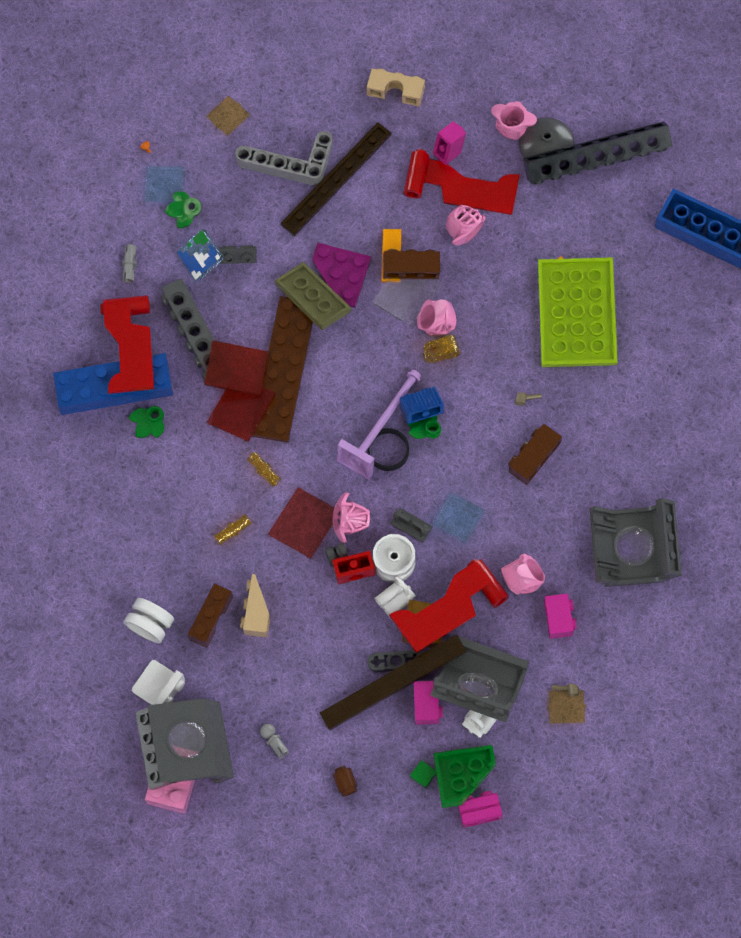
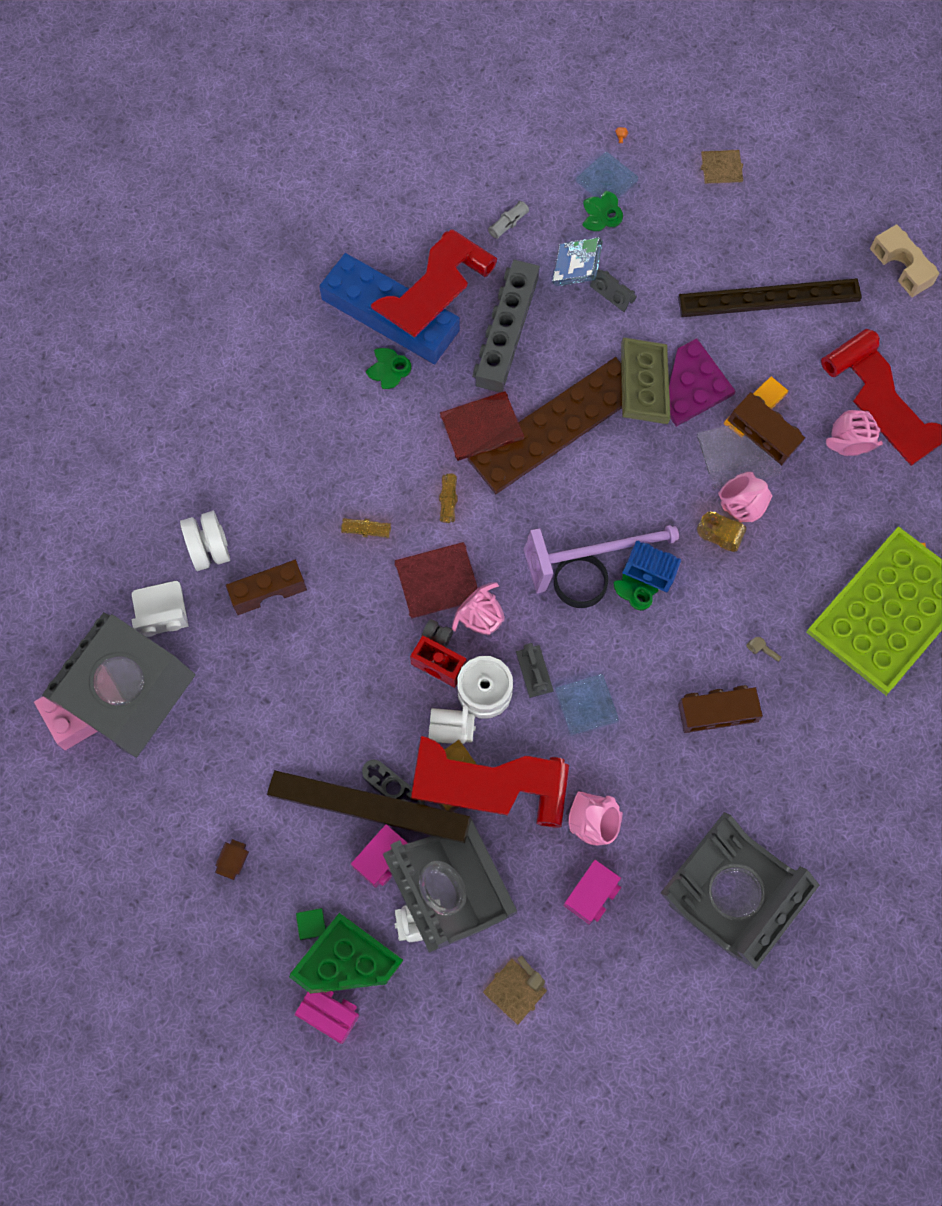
camera: 40 degrees right, 0 degrees up
(236, 368) = (509, 384): clear red piece -> none
(257, 616) = (309, 624): tan slope -> none
(268, 732) = (210, 744): light grey pin -> none
(289, 163) = (737, 249): light grey beam -> none
(449, 142) = (910, 347): dark pink brick -> none

